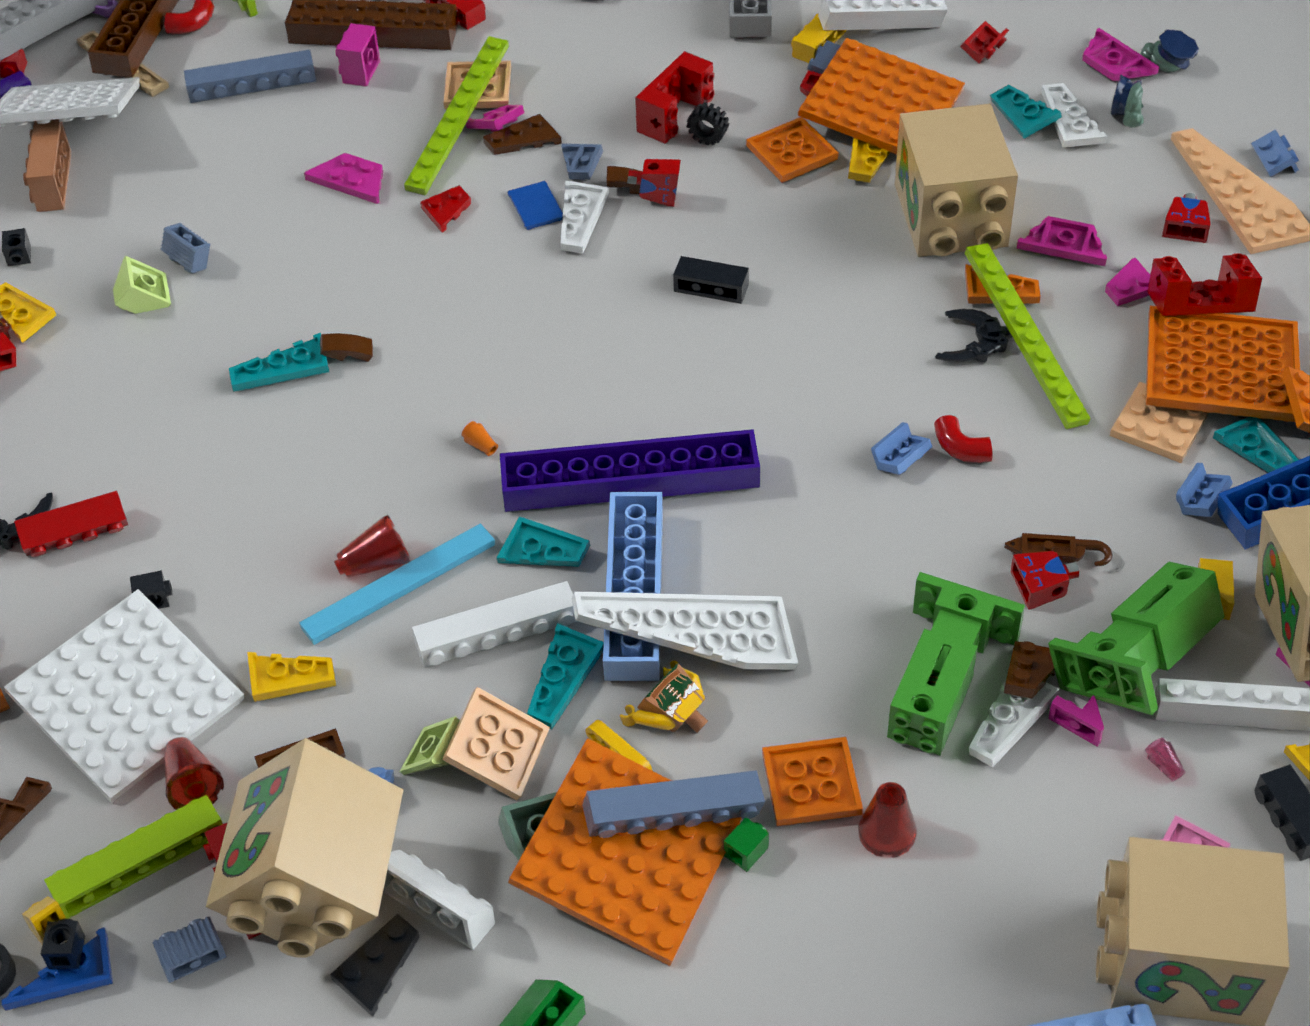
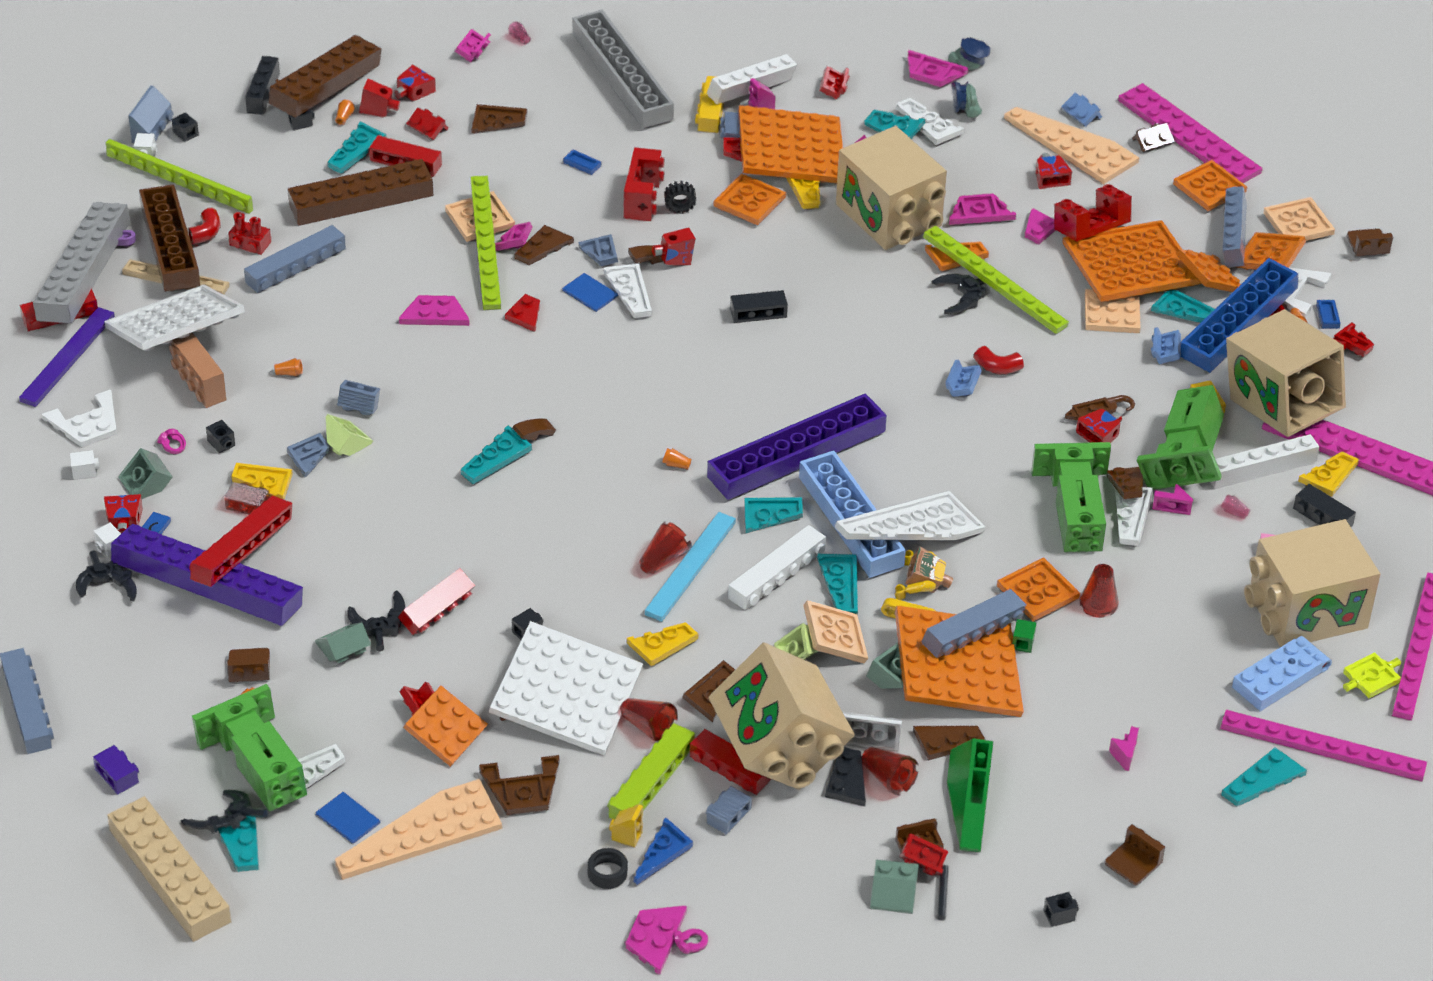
camera: 30 degrees left, 5 degrees down
(68, 953) = (653, 831): black brick -> none
(88, 296) = (308, 453): none -> sand blue wing
(150, 193) = (291, 367): none -> orange cone
(222, 37) = (248, 235): none -> red brick
(358, 54) = (374, 218): dark pink brick -> none
(429, 980) = (891, 769): none -> clear red cone
(540, 957) = (939, 740): none -> reddish brown wing
(635, 56) = (582, 162): none -> blue tile
(884, 33) = (760, 95): none -> dark pink slope

